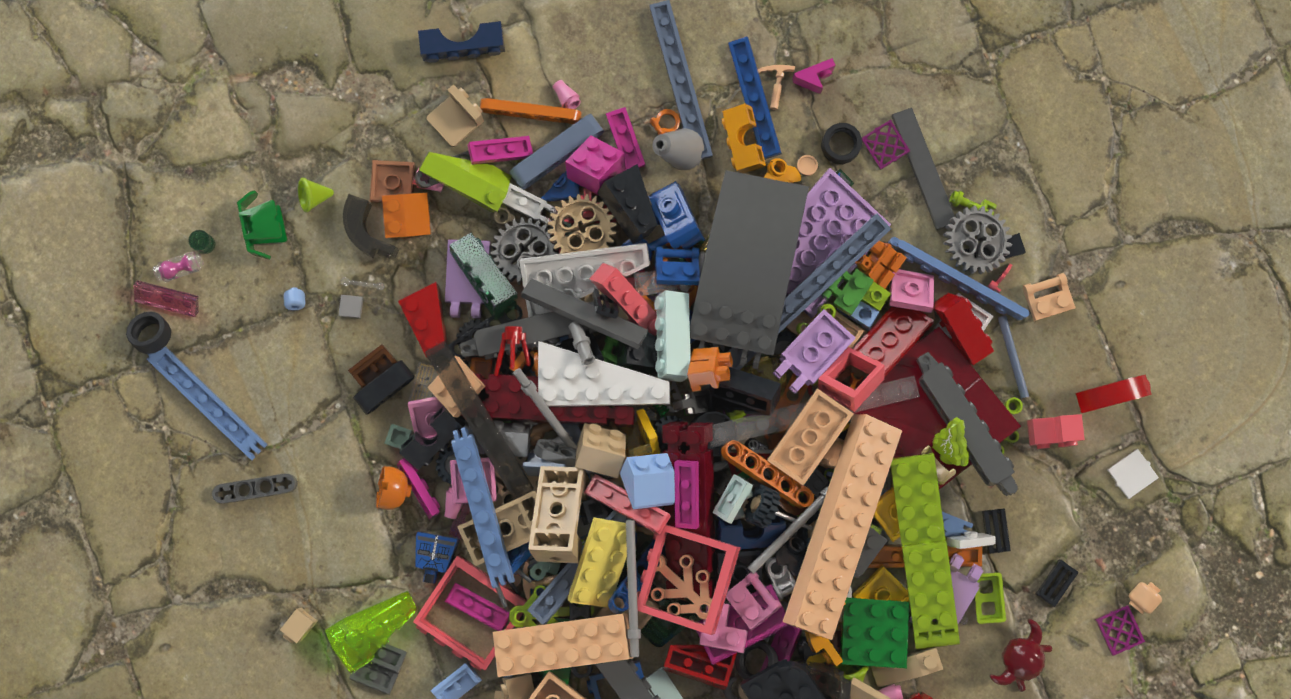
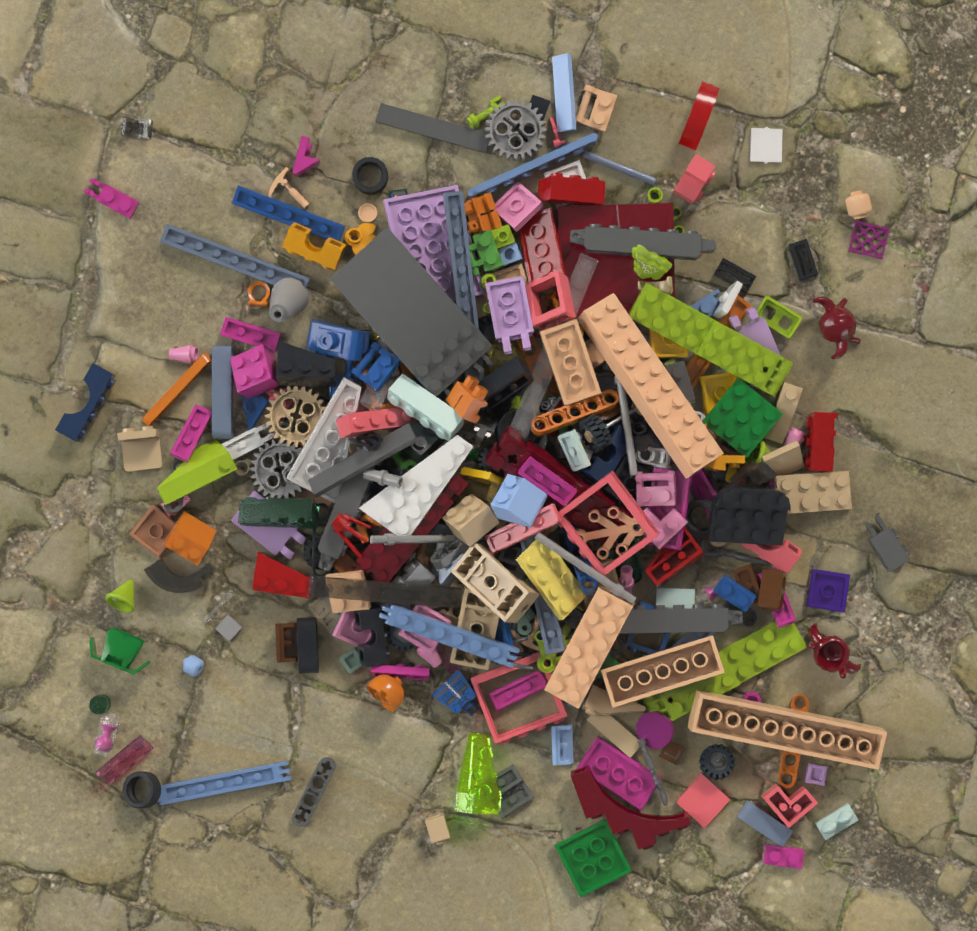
camera: 50 degrees left, 5 degrees up
(649, 633) = (626, 578): none -> bright pink pin
(877, 131) = (379, 142): magenta window -> none
(1042, 259) = (564, 93): none -> light blue tile

